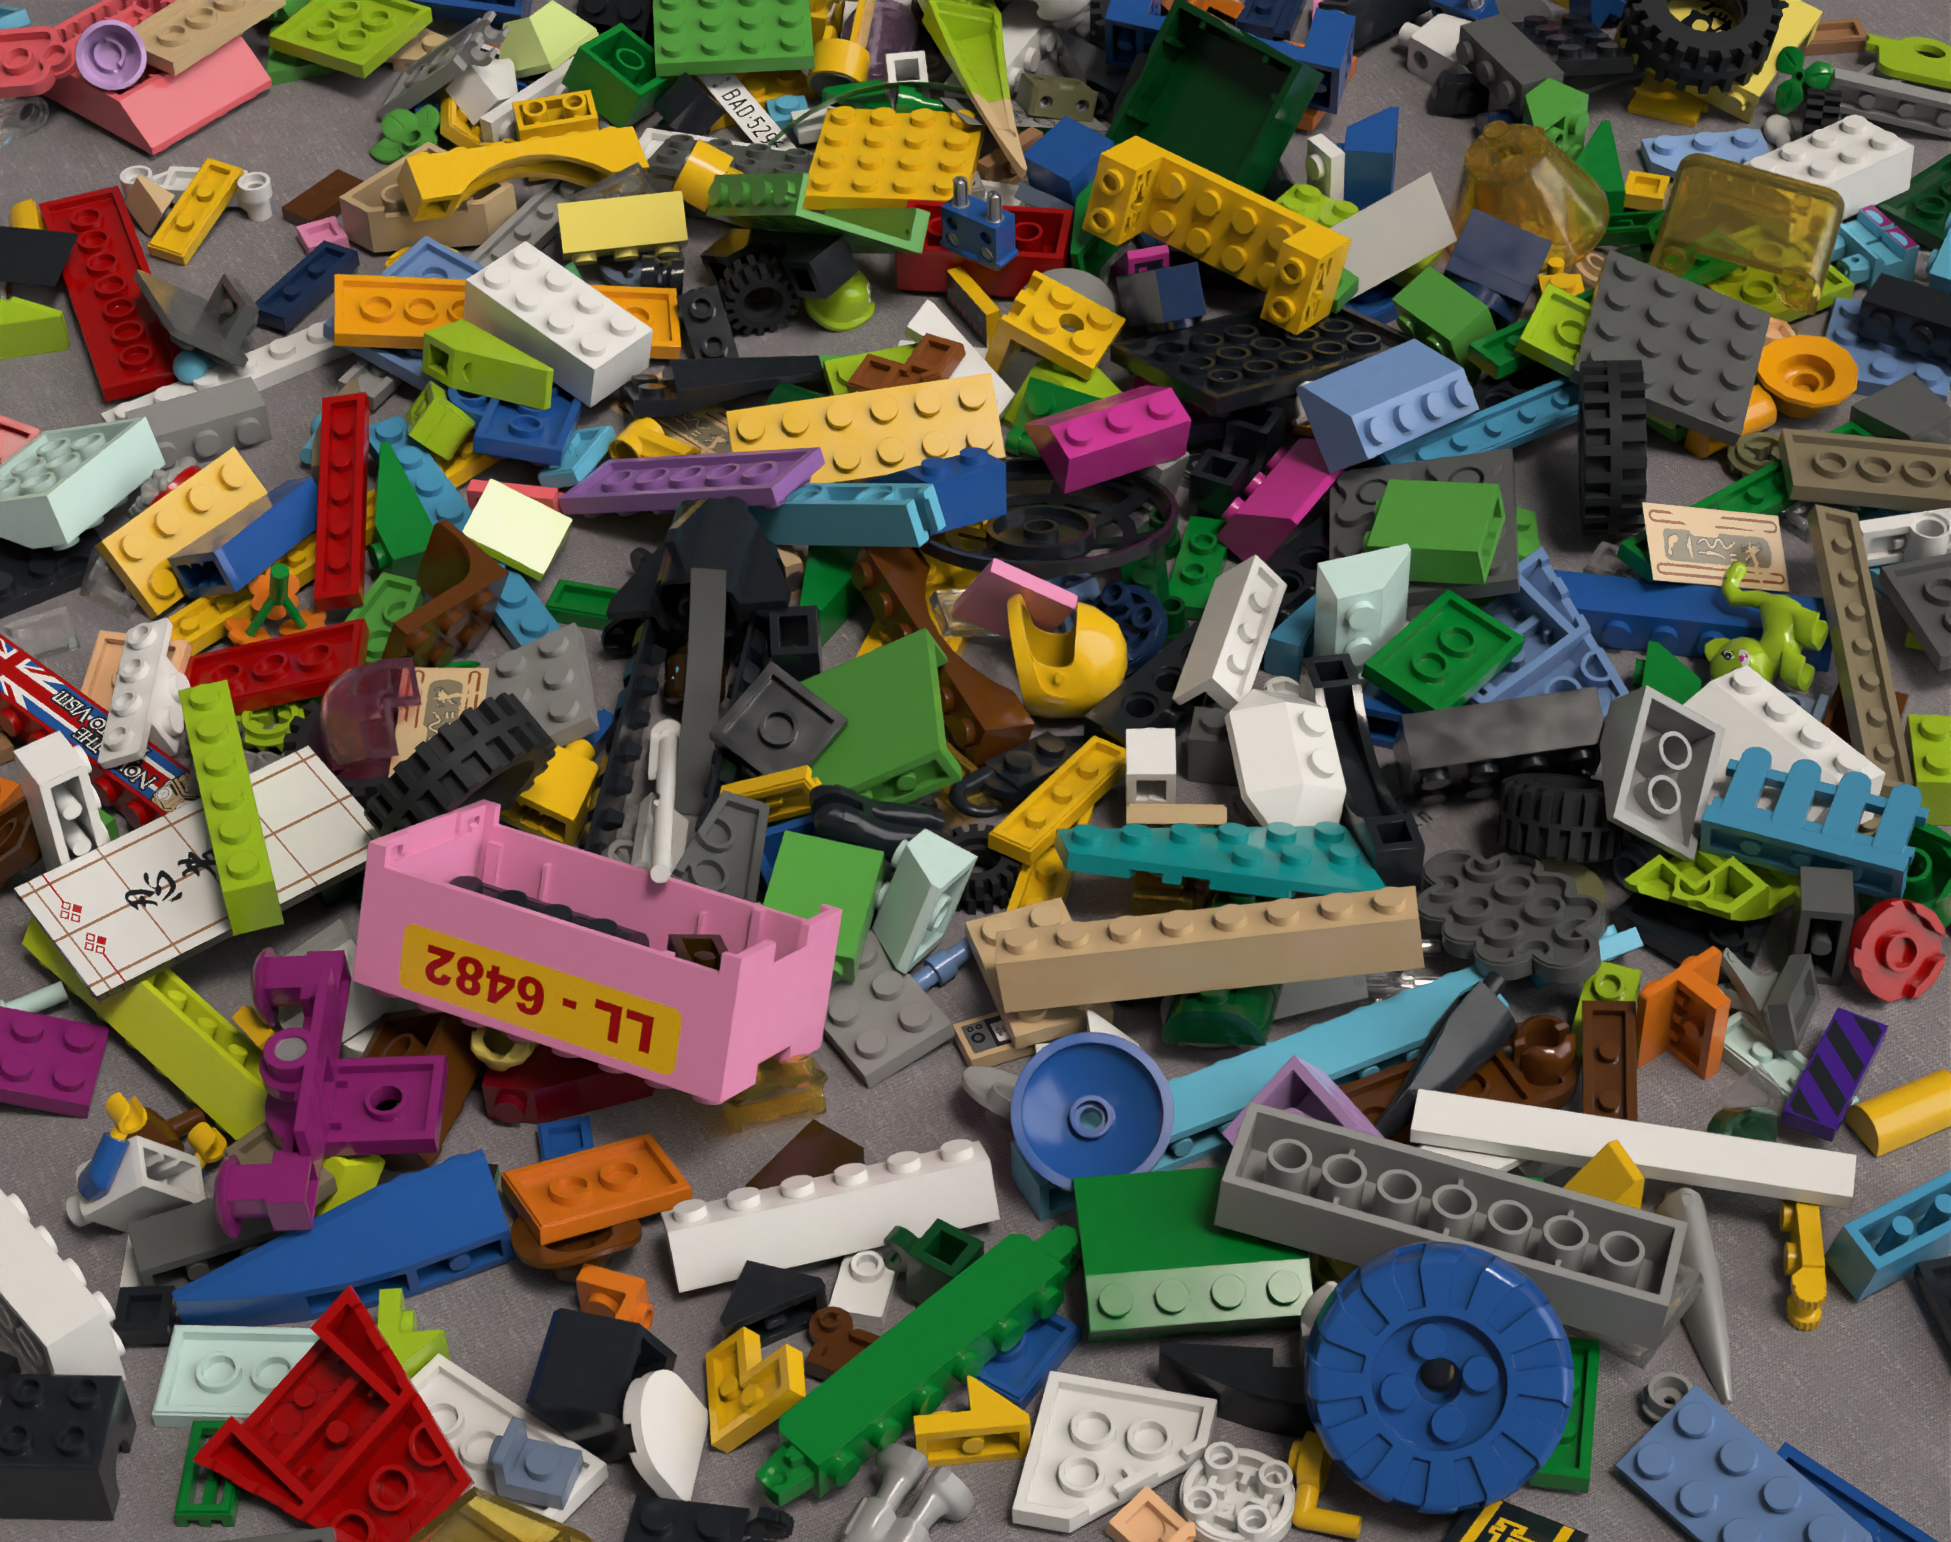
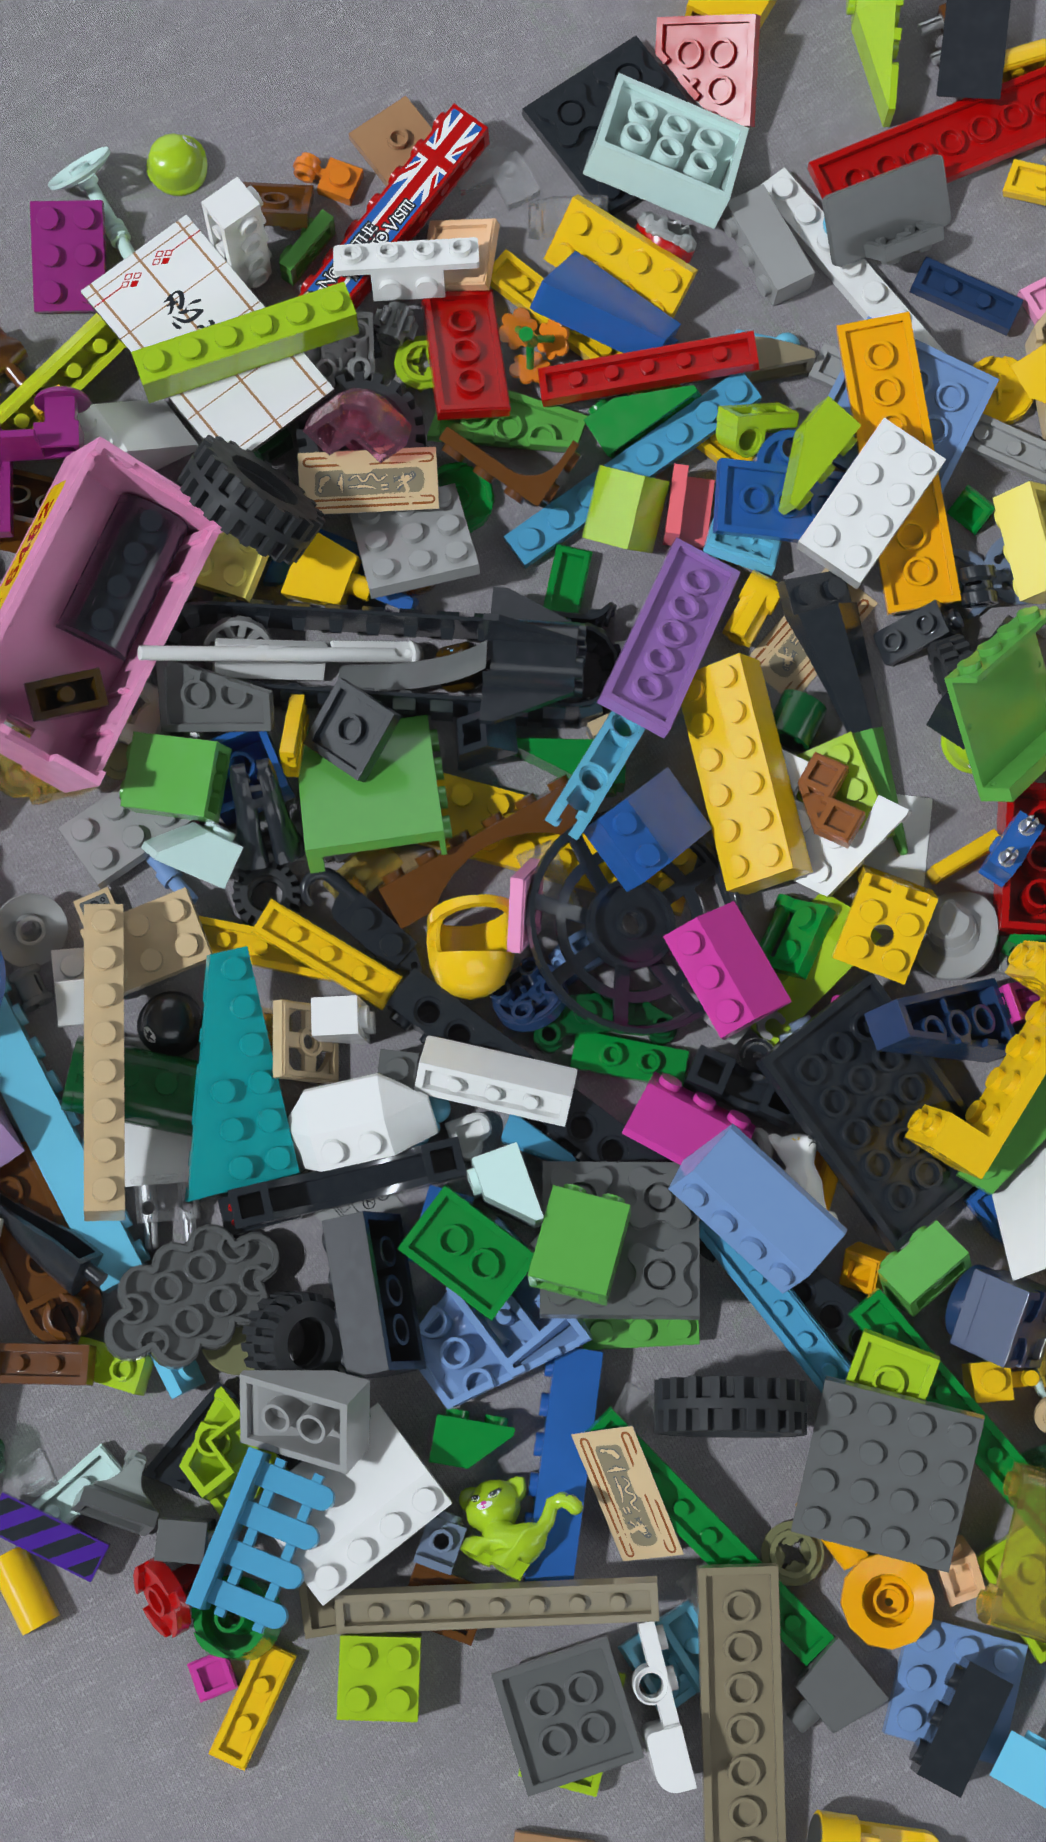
camera: 80 degrees right, 35 degrees up
(1685, 1015) = (96, 1422): orange bracket -> none

